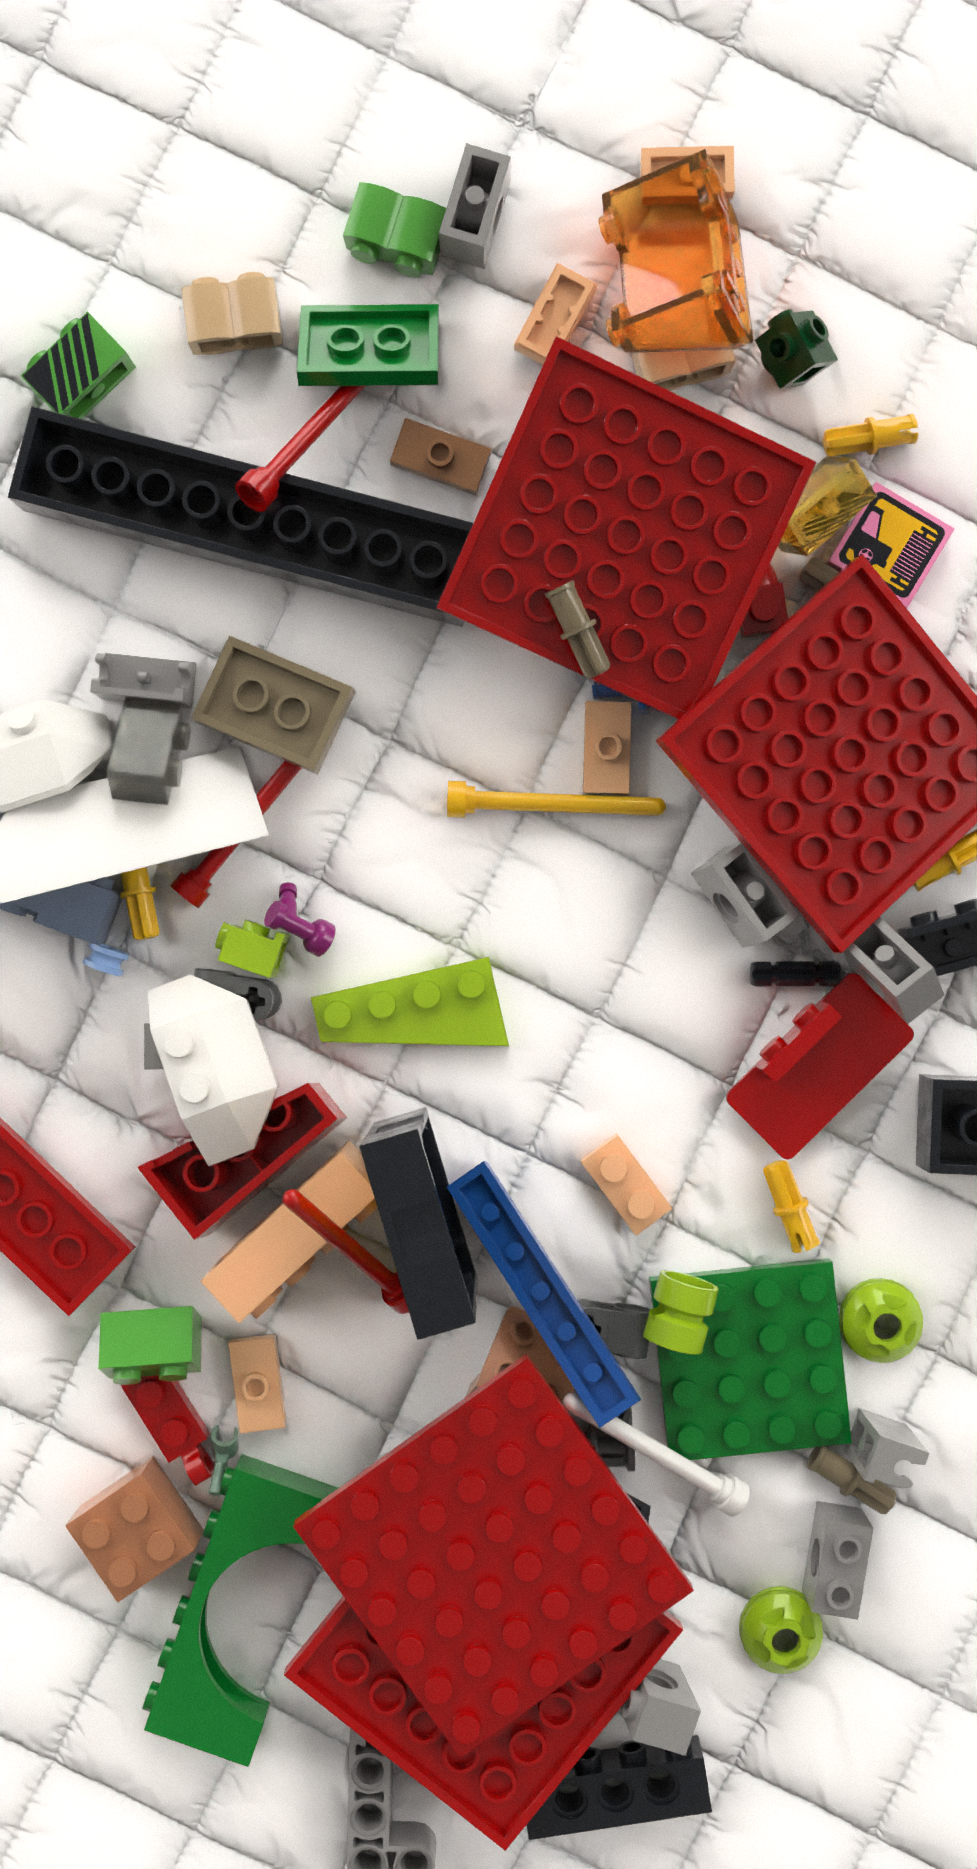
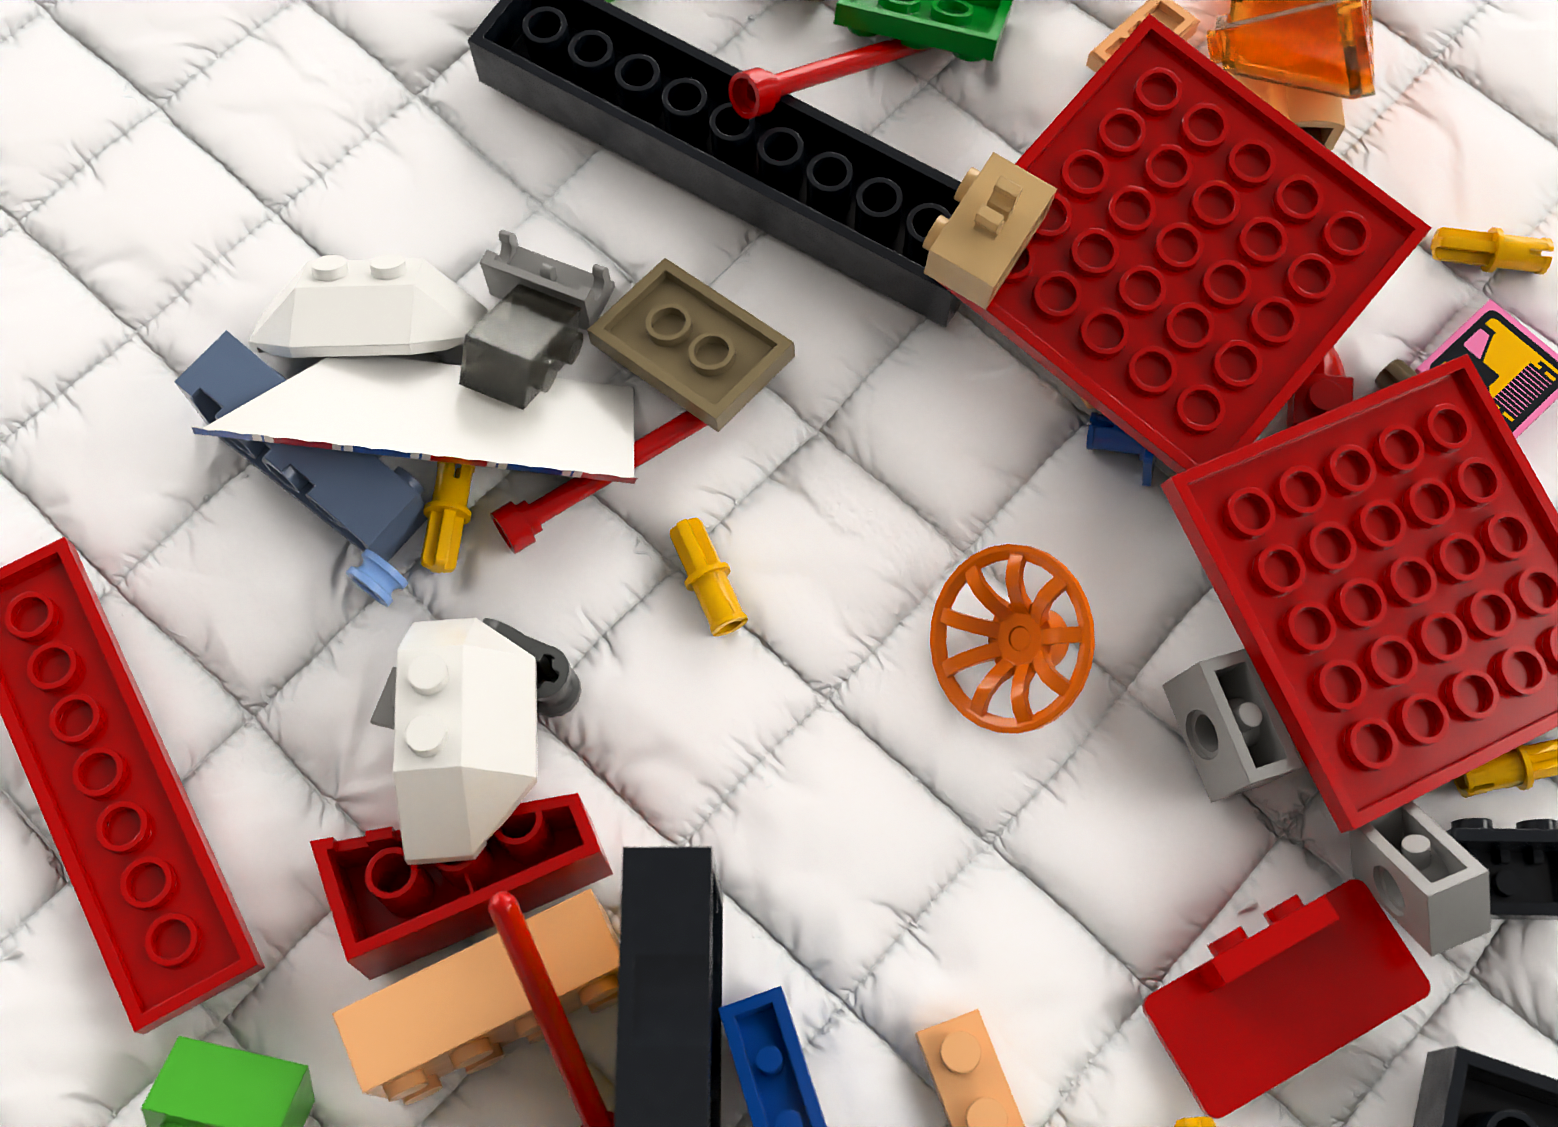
camera: 20 degrees right, 20 degrees down
(251, 947) = (566, 616): lime brick -> none
(283, 914) = (620, 582): magenta piece -> none
(343, 884) = (707, 577): none -> yellow axle
(427, 1007) = (753, 758): lime wing -> none
(440, 456) = (962, 138): medium nougat plate -> none
(465, 799) = (892, 517): yellow piece -> none
(477, 575) = (987, 230): none -> tan brick
(578, 630) = (1095, 327): dark tan axle -> none
(582, 872) = (1021, 638): none -> orange wheel
(607, 747) = (1088, 508): light nougat plate -> none
(795, 348) = (1419, 134): dark green brick -> none
(795, 973) = (1276, 859): black axle -> none
(828, 502) = (1423, 298): clear yellow brick -> none

